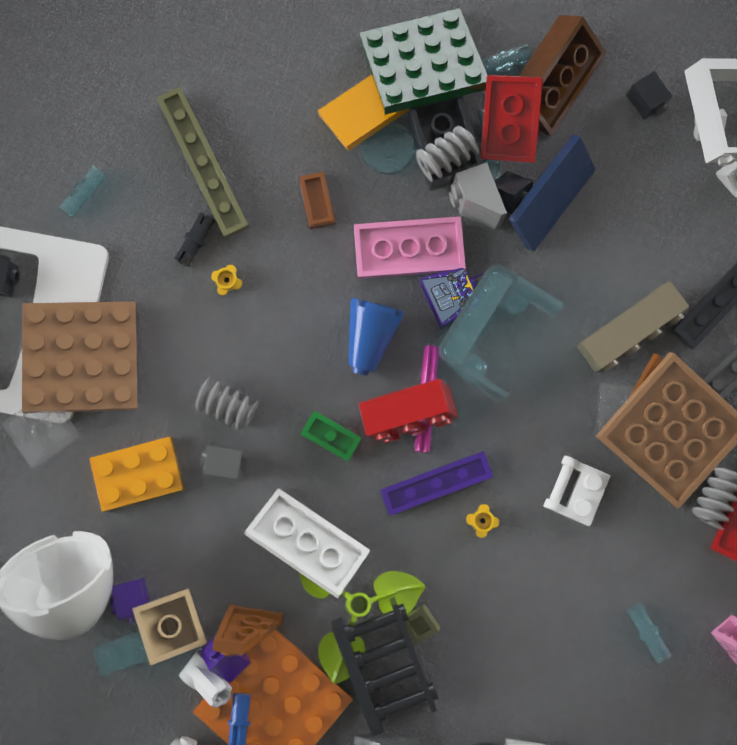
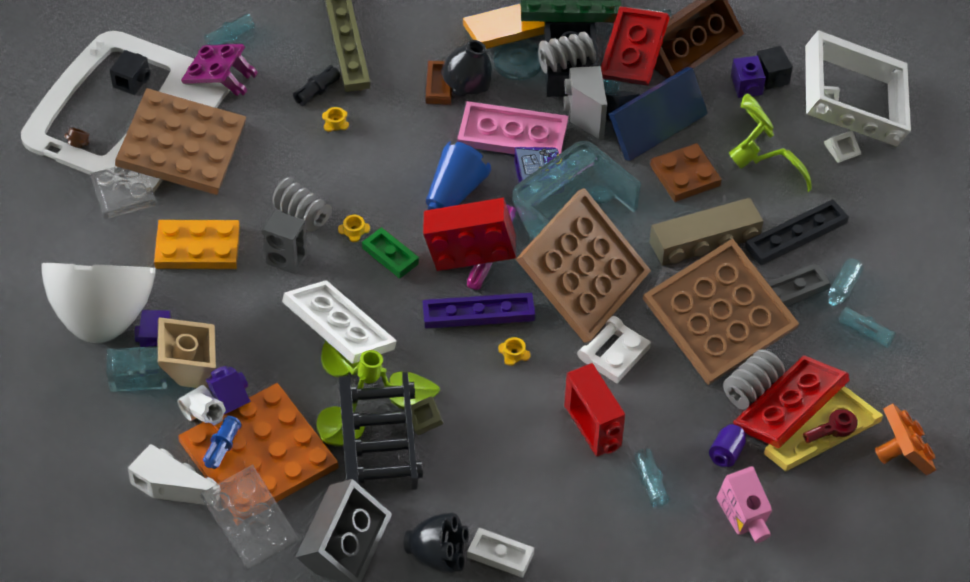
camera: 15 degrees right, 30 degrees down
(81, 247) = (213, 66): none -> magenta plate
(244, 629) = (256, 364): dark orange wing -> none
(278, 416) = (354, 227): none -> yellow plate
(343, 186) = (468, 69): none -> black piece
(530, 417) = (583, 265): none -> medium nougat plate
(584, 585) = (594, 410): none -> red window
(591, 251) = (685, 172): none -> dark orange plate
(627, 115) = (747, 76): none -> dark purple brick
(651, 213) = (748, 149): none -> lime plant
(712, 579) = (728, 445): none -> dark purple brick

